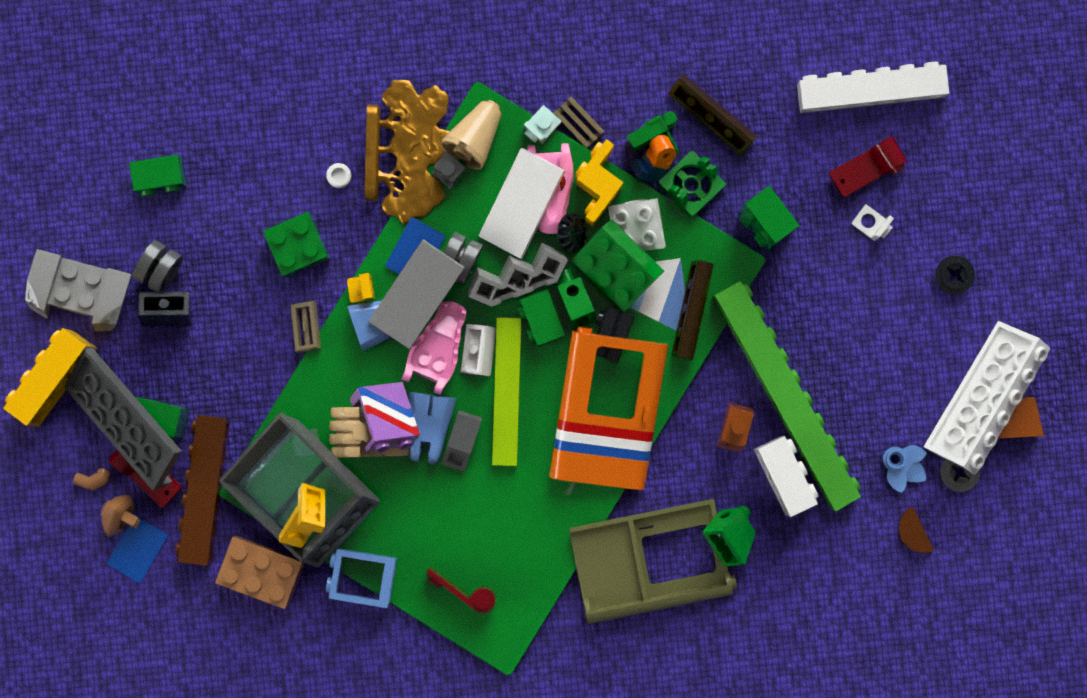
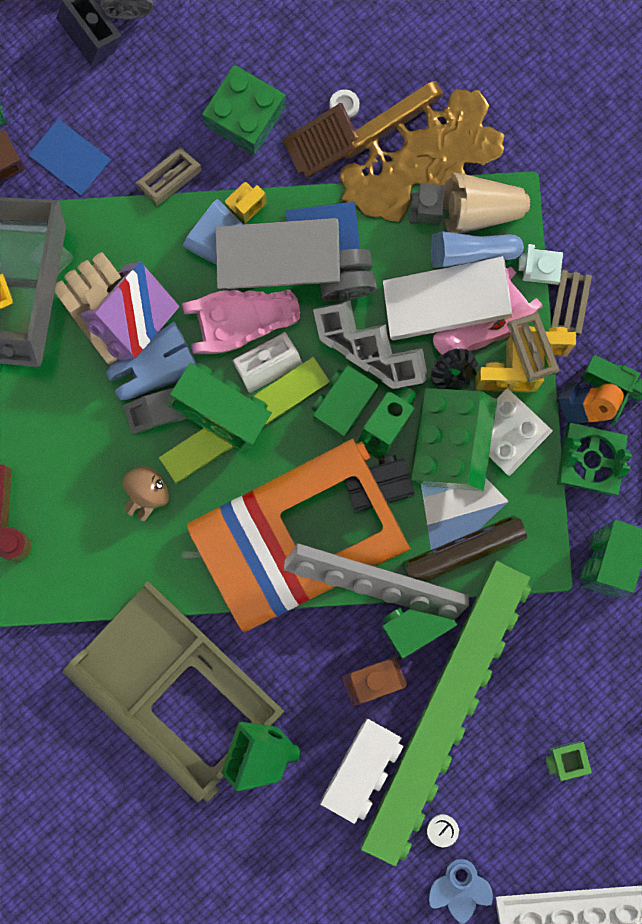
camera: 50 degrees right, 5 degrees down
(243, 383) = (69, 157): none -> blue sticker
(355, 209) = (322, 141): none -> reddish brown window
(491, 403) = (218, 406): none -> green brick
(496, 171) = (458, 249): none -> medium blue piece
(508, 488) = (145, 489): none -> medium nougat piece
(576, 167) = (541, 372): none -> dark tan tile
(675, 382) = (375, 582): none -> light grey plate
(721, 380) = (413, 630): none -> green slope
(859, 451) = (442, 830): none -> white tile
(872, 340) = (568, 761): none -> bright green brick

